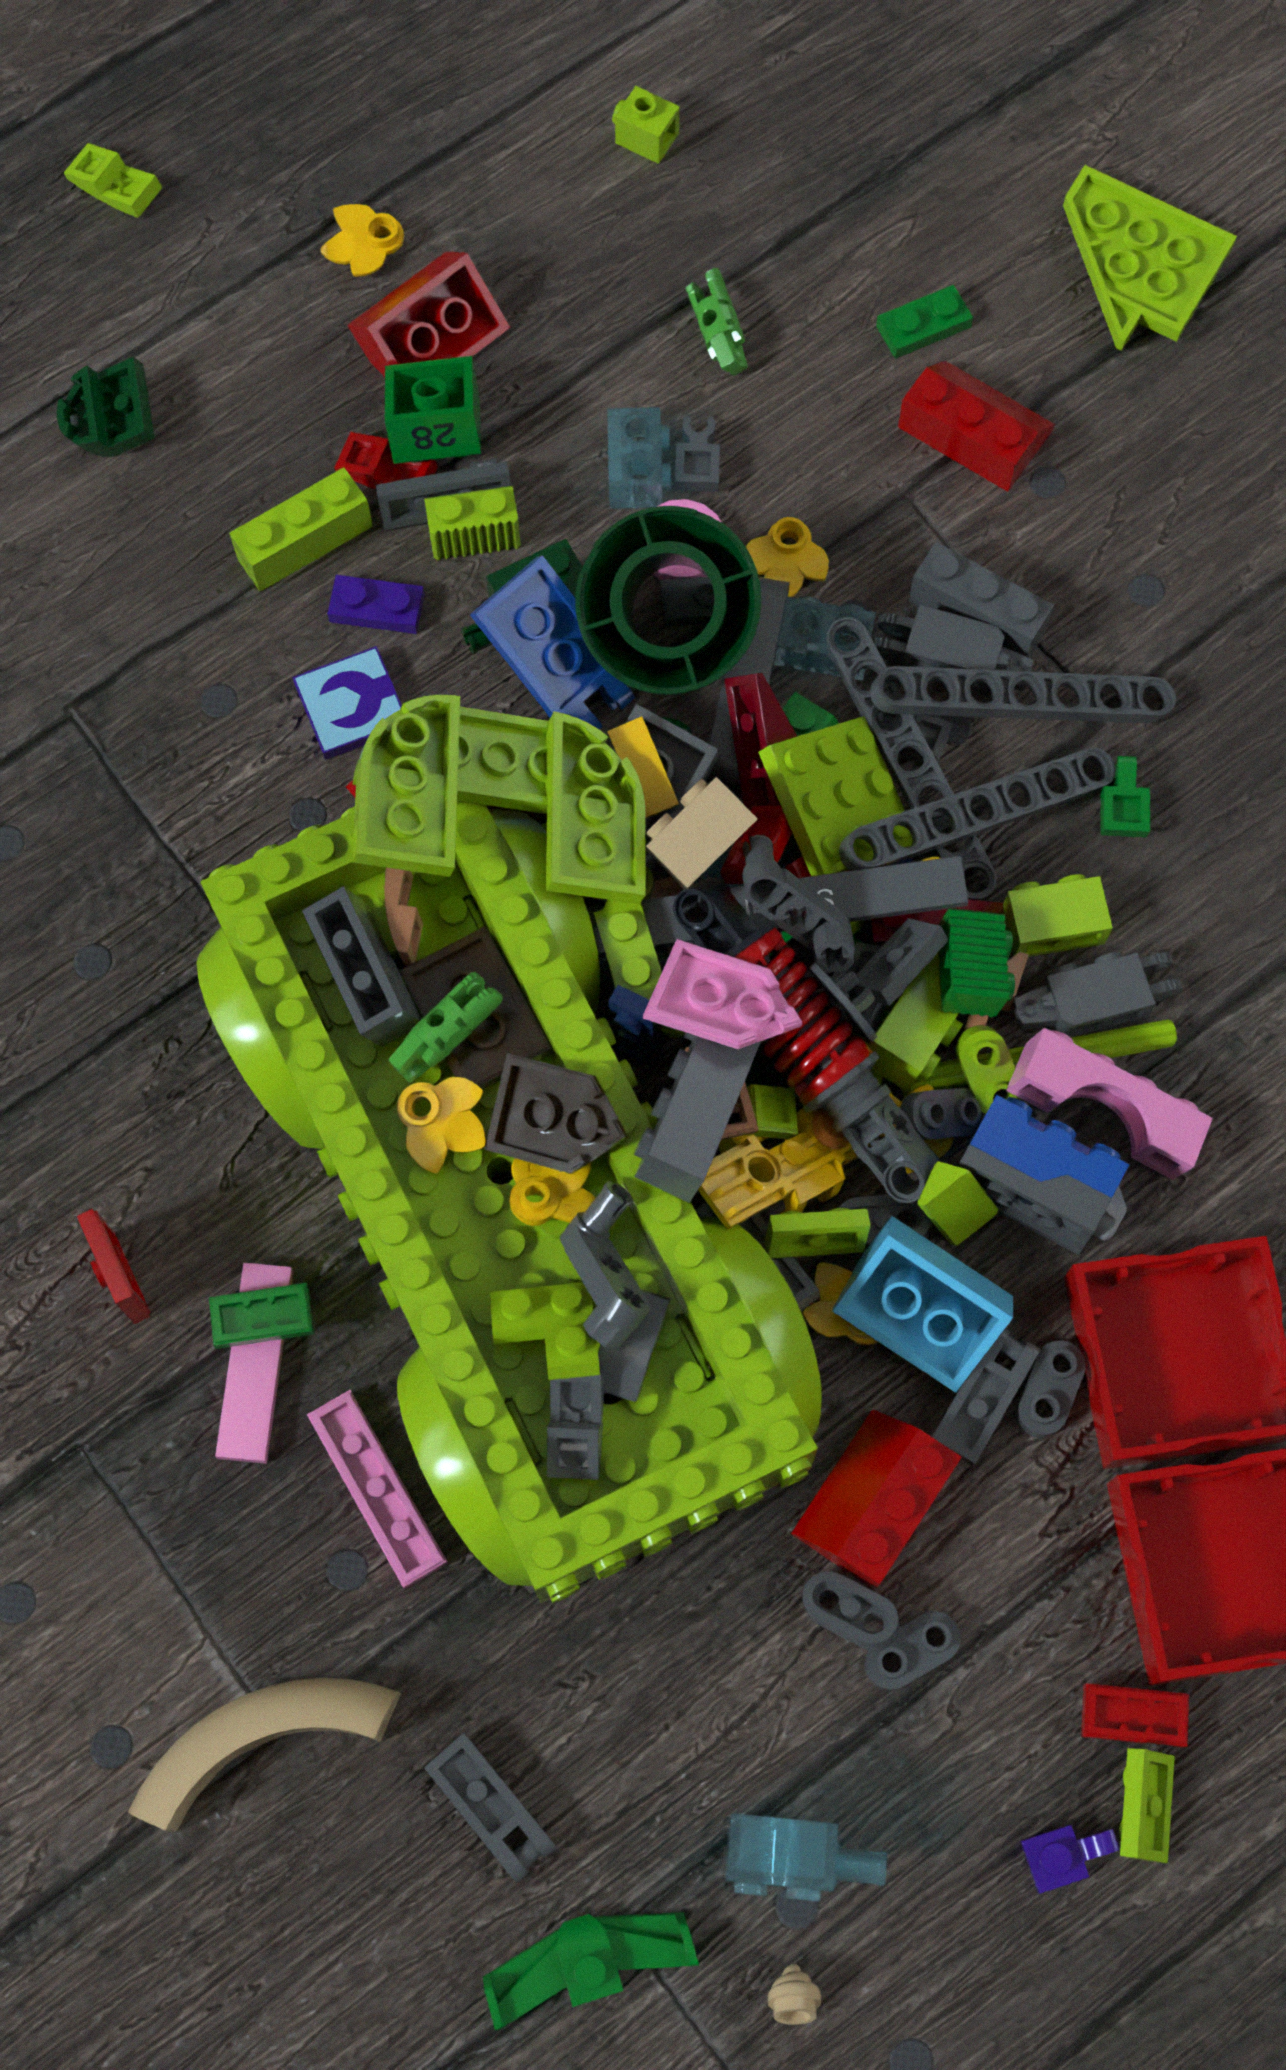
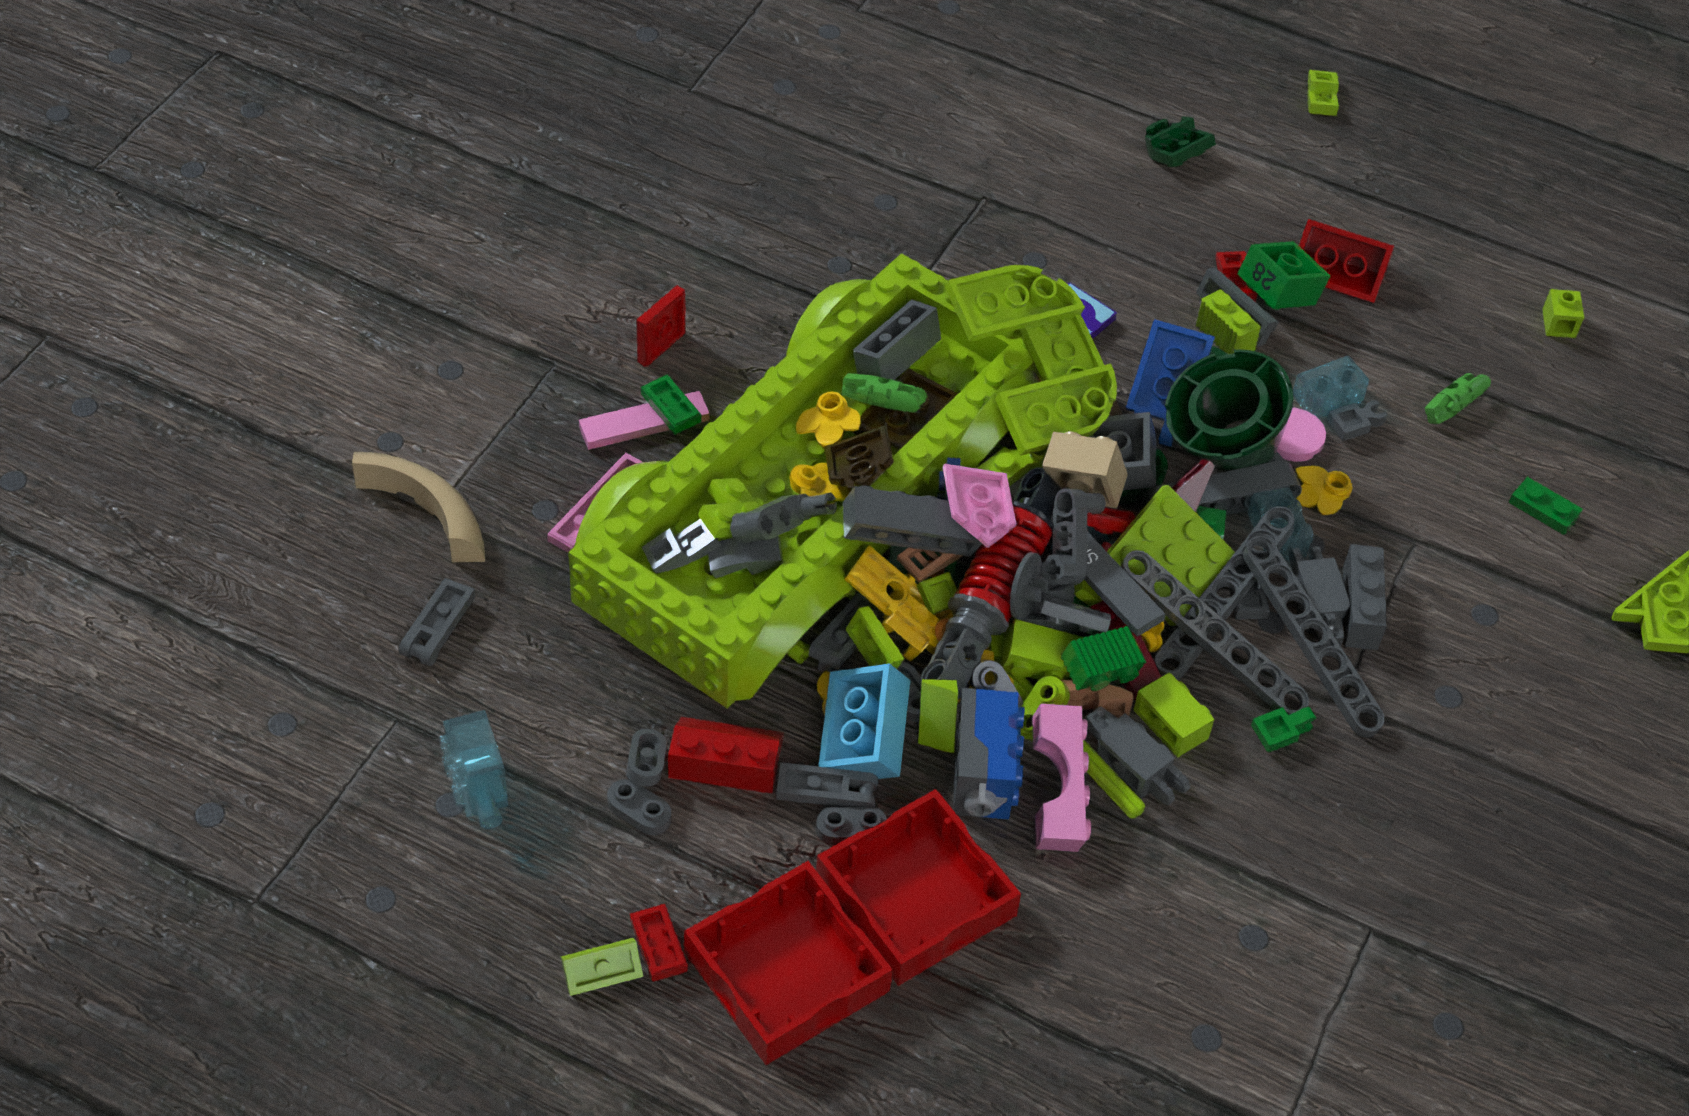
camera: 60 degrees right, 20 degrees down
(301, 529) = (1164, 249): lime brick -> none
(360, 241) = (1378, 215): yellow plate -> none
(376, 604) = (1143, 303): dark purple plate -> none
(402, 919) = (948, 349): nougat slope -> none
(587, 1961) = (367, 703): green plate -> none
(635, 742) = (1119, 423): yellow piece -> none
(794, 1997) = (392, 814): tan plate -> none
(973, 423) = (1493, 552): red slope -> none
(1059, 1858) = (547, 933): dark purple plate -> none

